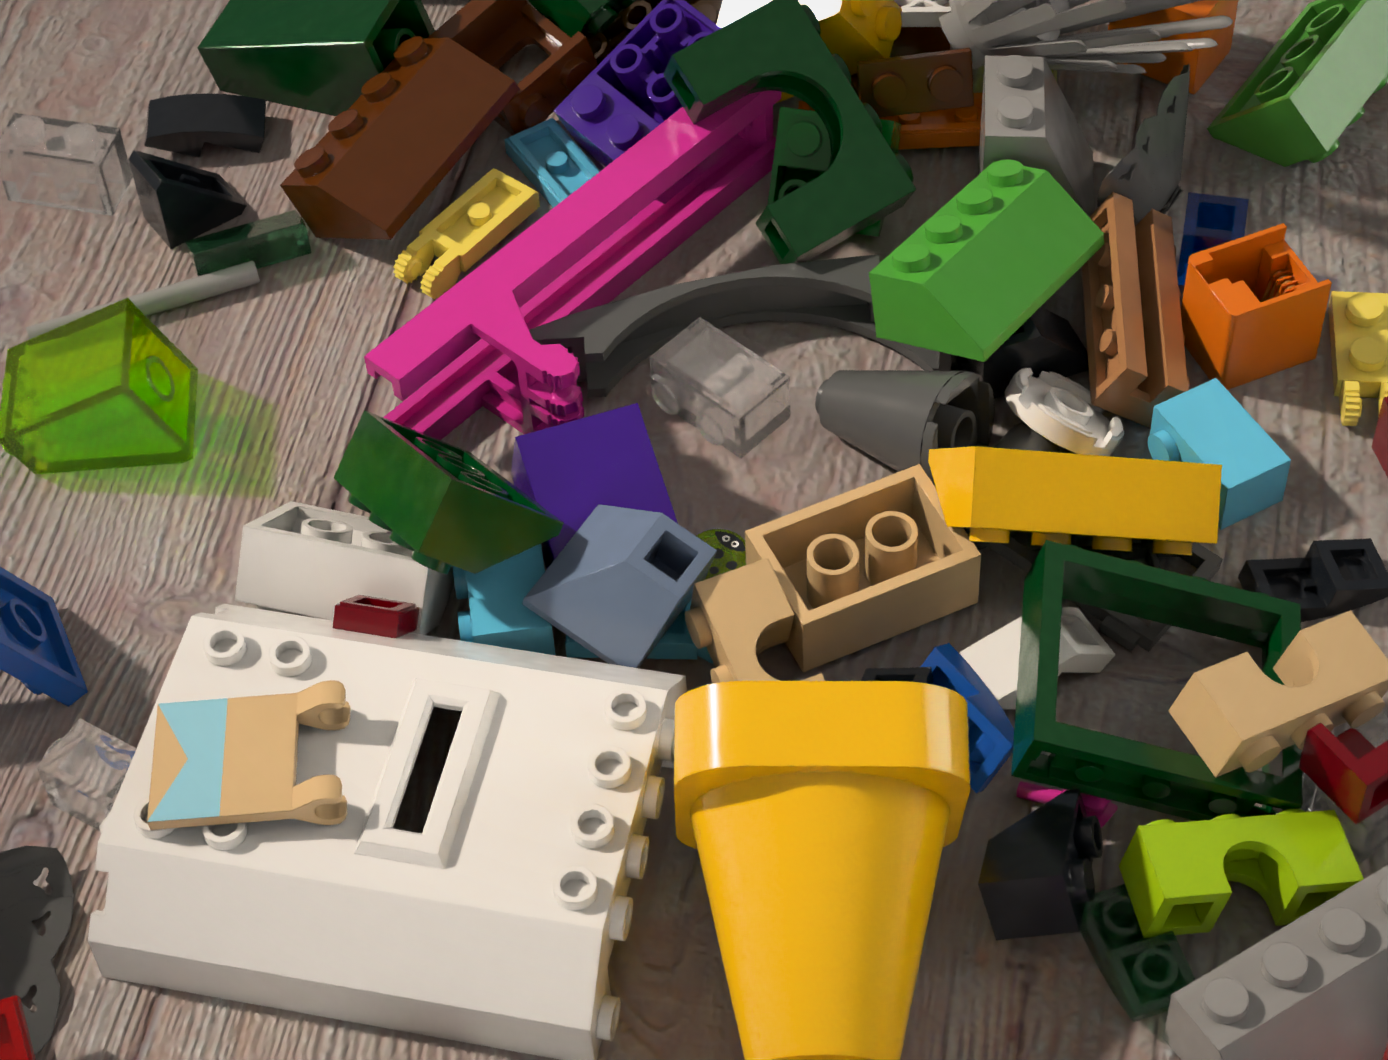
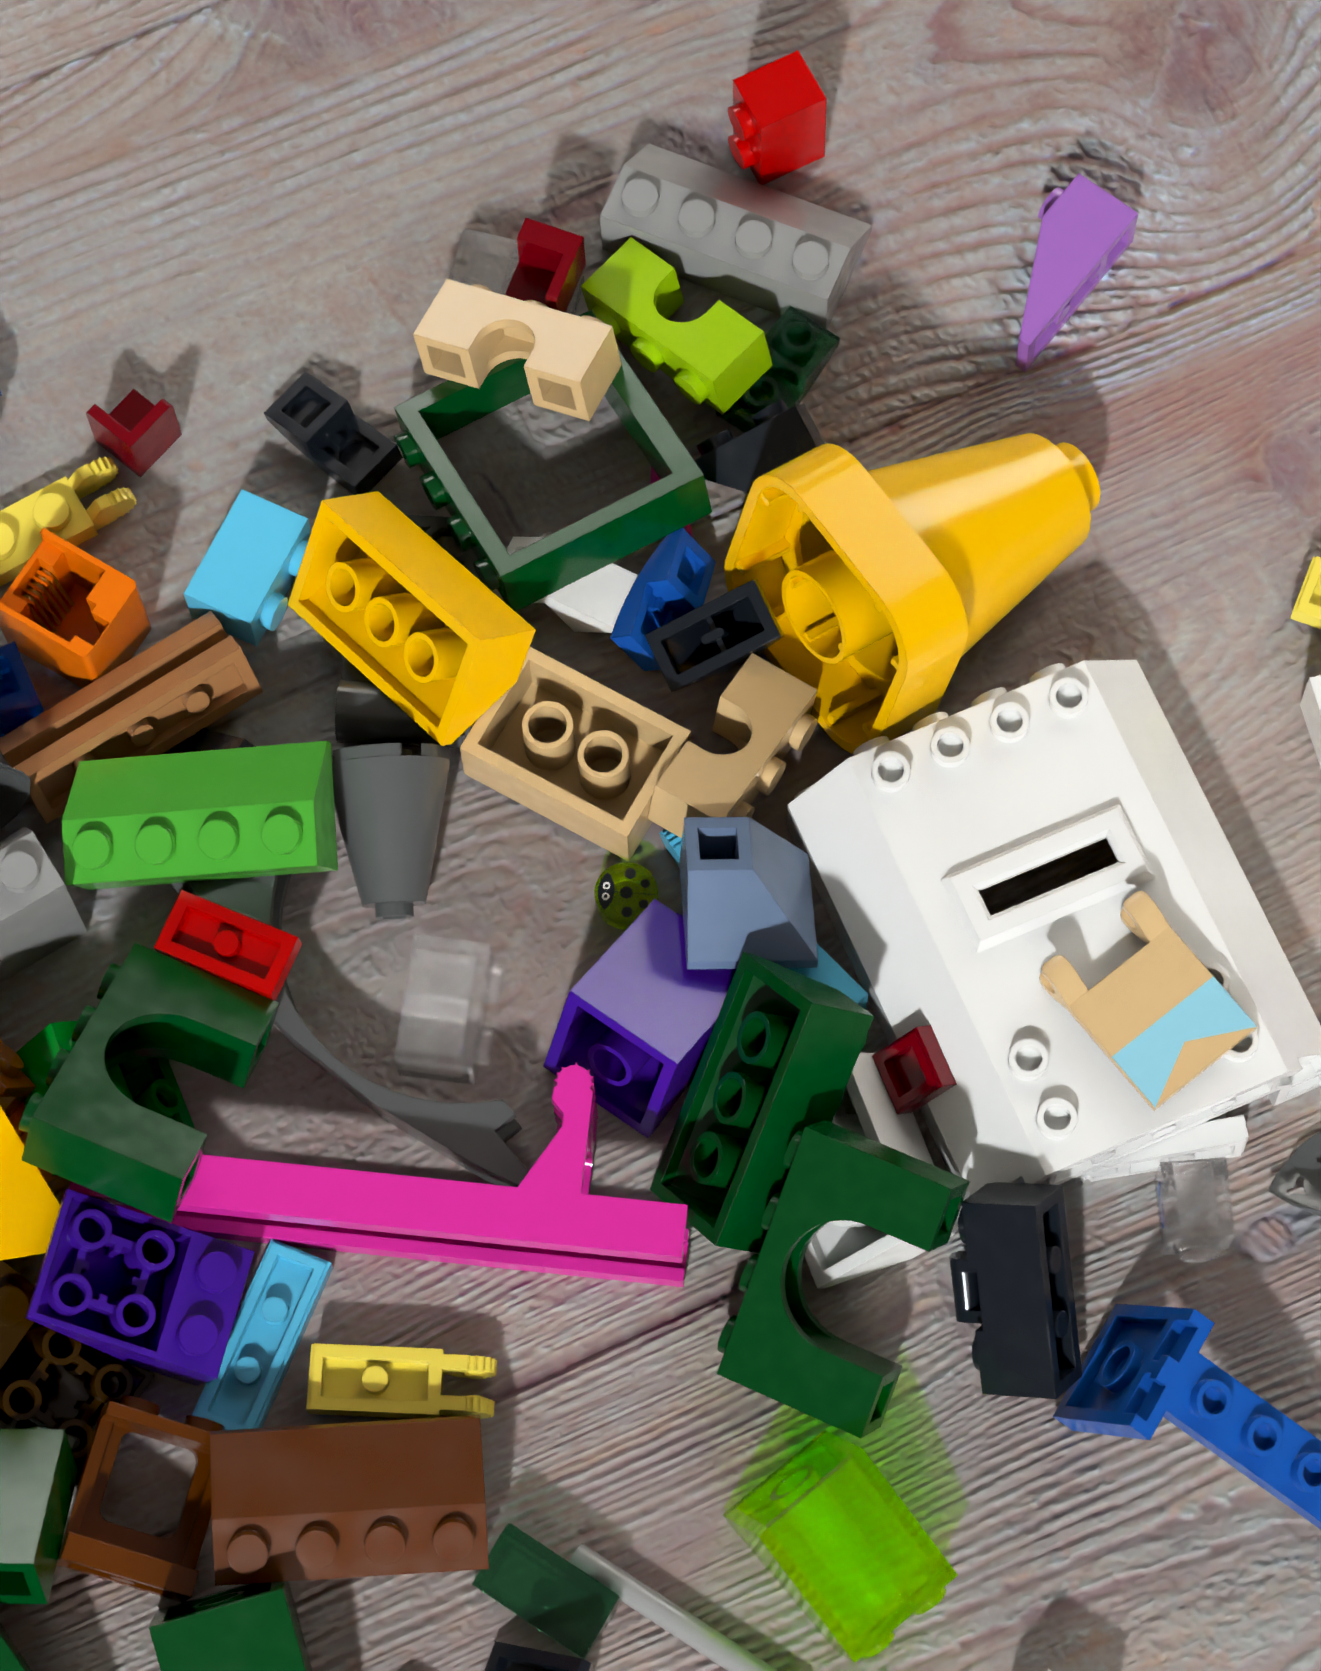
camera: 125 degrees left, 20 degrees up
(139, 579) = (1018, 1288): none -> black piece
(265, 466) = (775, 1337): none -> dark green arch
(851, 251) = (228, 945): none -> red plate
(1063, 413) = (300, 698): white tile -> none

